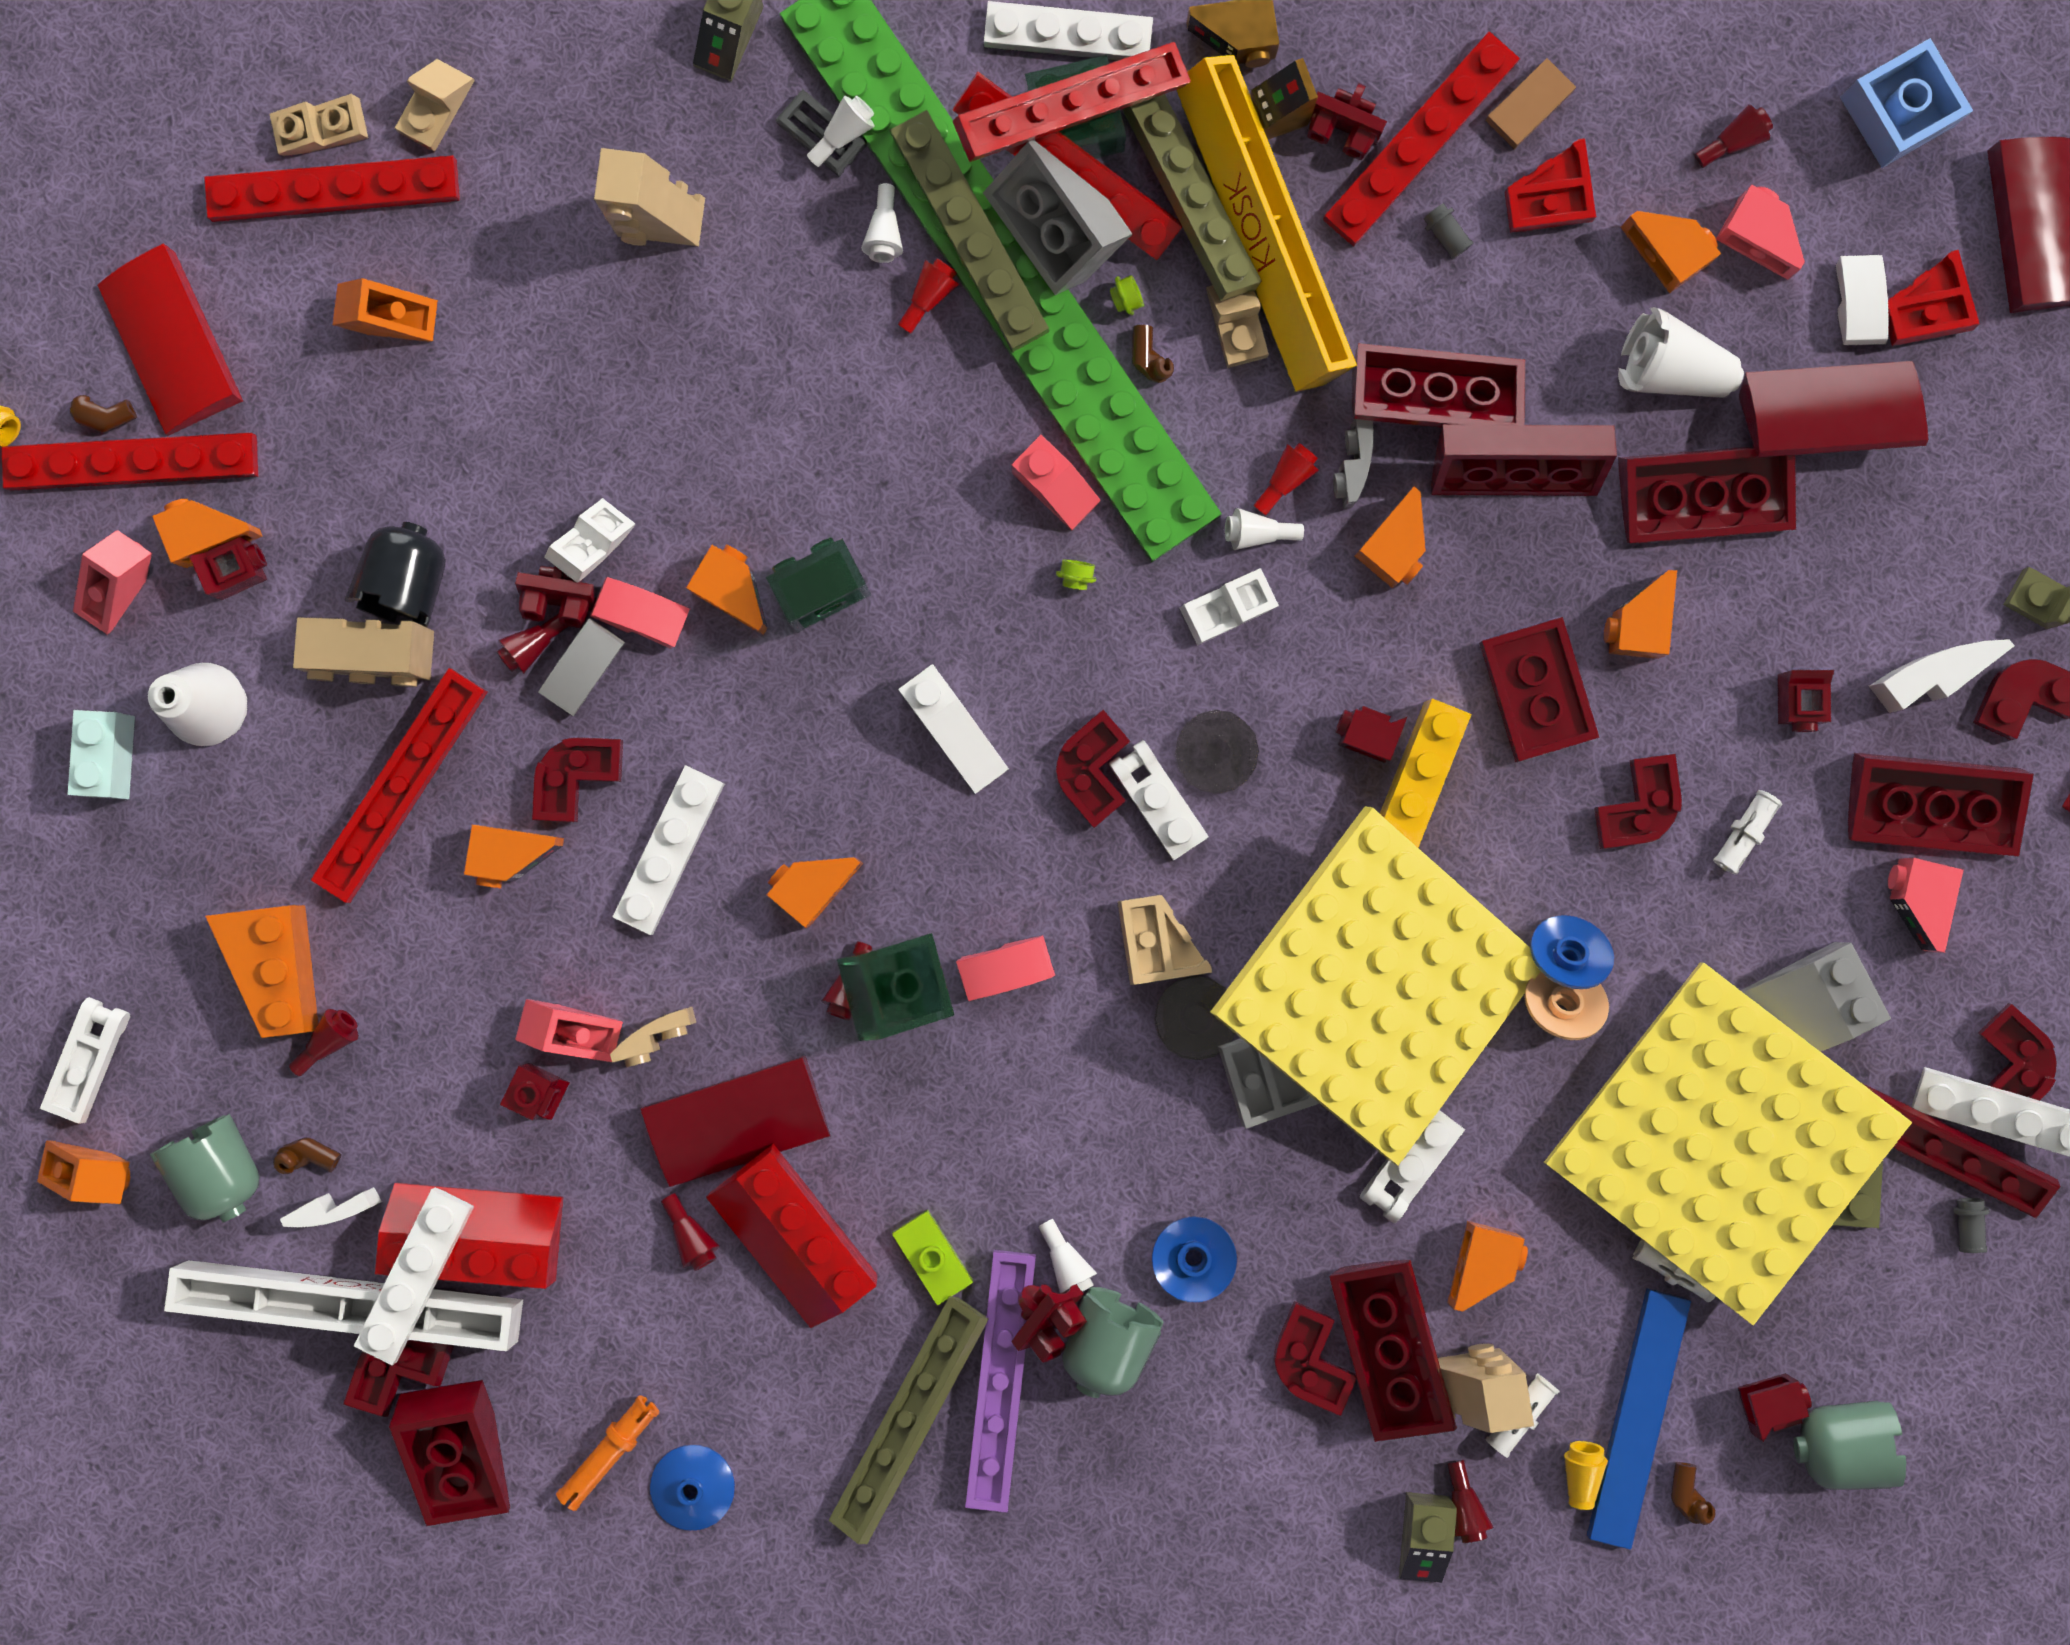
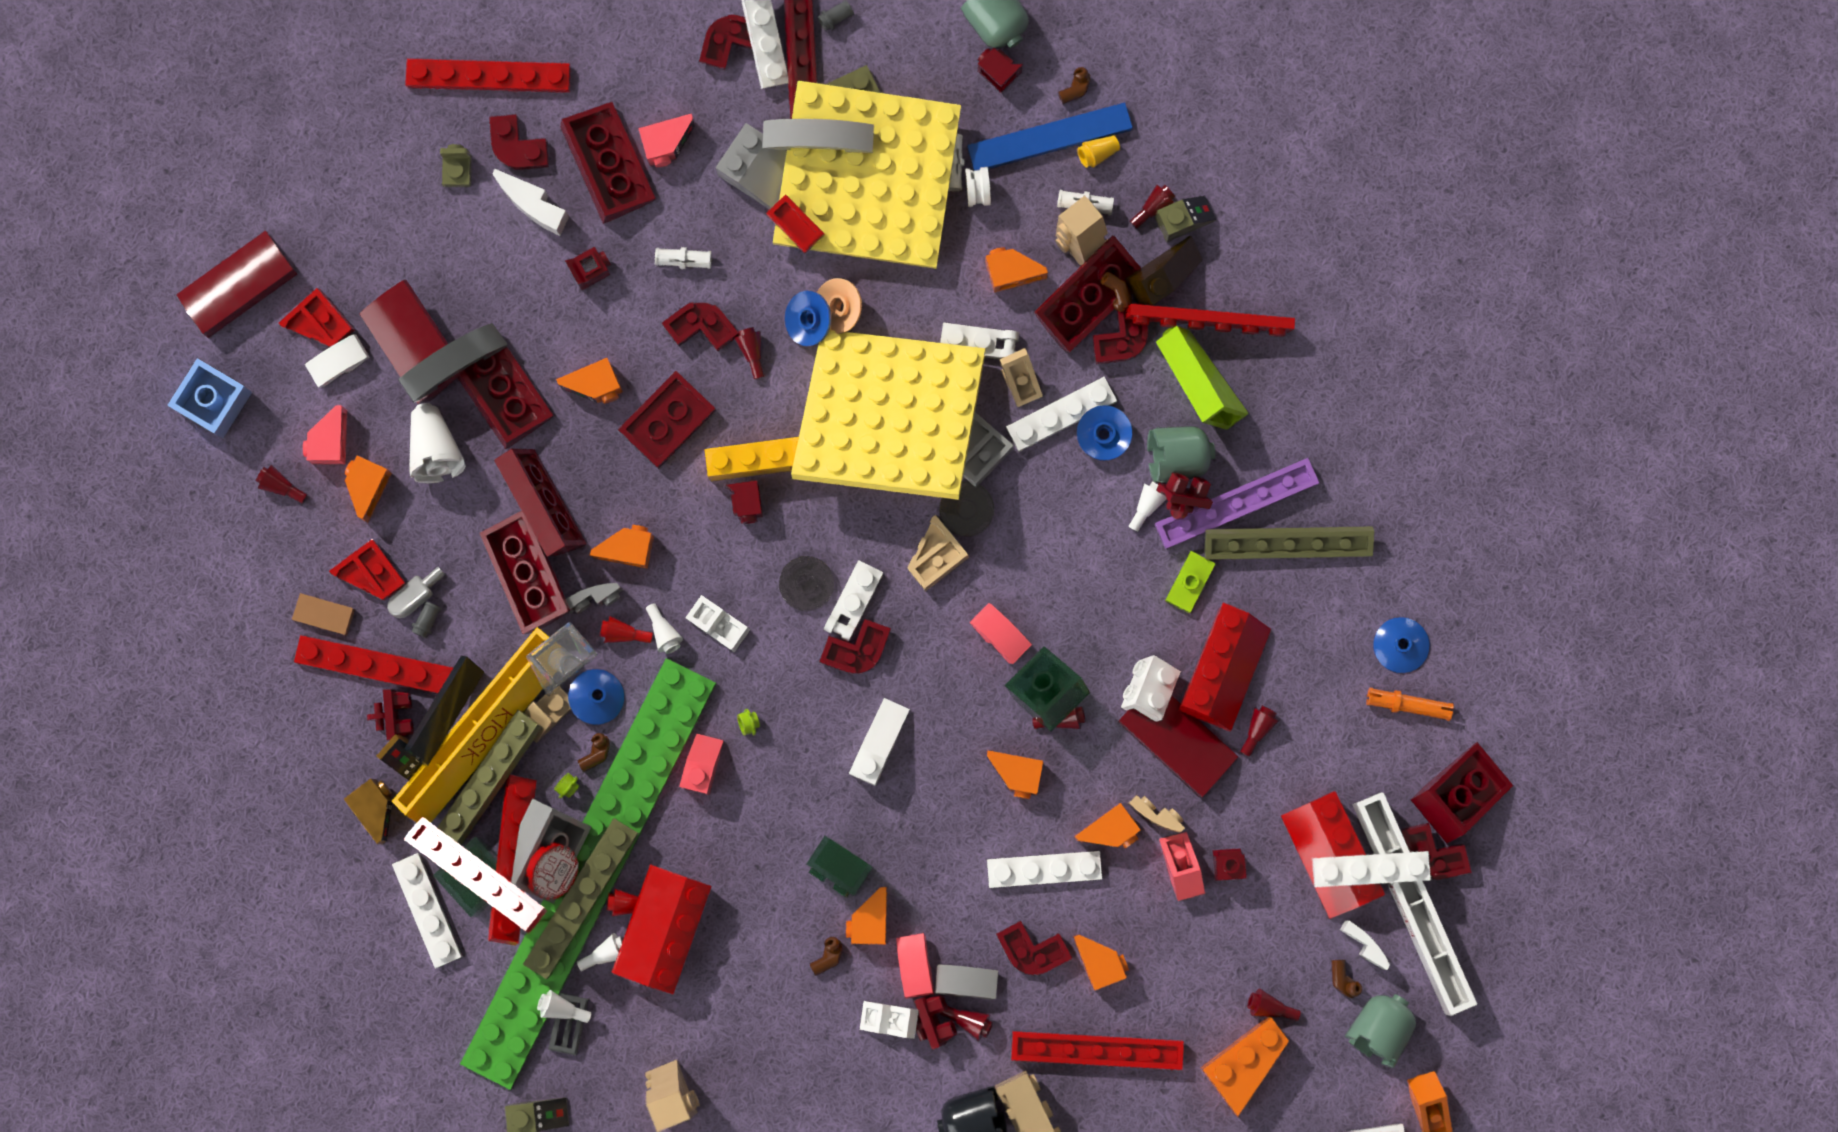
camera: 115 degrees left, 5 degrees down
(668, 964) = (1111, 829): none -> orange slope
(713, 511) = (830, 958): none -> reddish brown arm
(821, 1124) = (1151, 687): none -> white bracket
(870, 312) = (661, 929): none -> red slope
(1022, 206) = (552, 871): none -> tile
(1194, 1431) = (1200, 379): none -> lime slope
(1199, 396) = (586, 707): none -> blue dish
(1253, 1214) = (1060, 414): none -> white plate
(1276, 1477) = (1220, 320): none -> red plate
(1298, 371) = (560, 658): none -> clear slope
(1314, 185) = (444, 710): none -> black tile
(1331, 1190) = (1020, 377): none -> tan slope
(1365, 1467) = (1164, 273): none -> dark brown slope
(1373, 1395) = (1121, 290): none -> reddish brown arm
(1491, 233) = (413, 594): none -> light grey piece
(1576, 854) = (750, 345): none -> dark red cone
(1625, 1283) = (978, 186): none -> white wheel
(1713, 1006) = (795, 224): none -> red tile
(1781, 446) = (451, 360): none -> dark grey slope
(1821, 1107) = (818, 134): none -> light grey slope

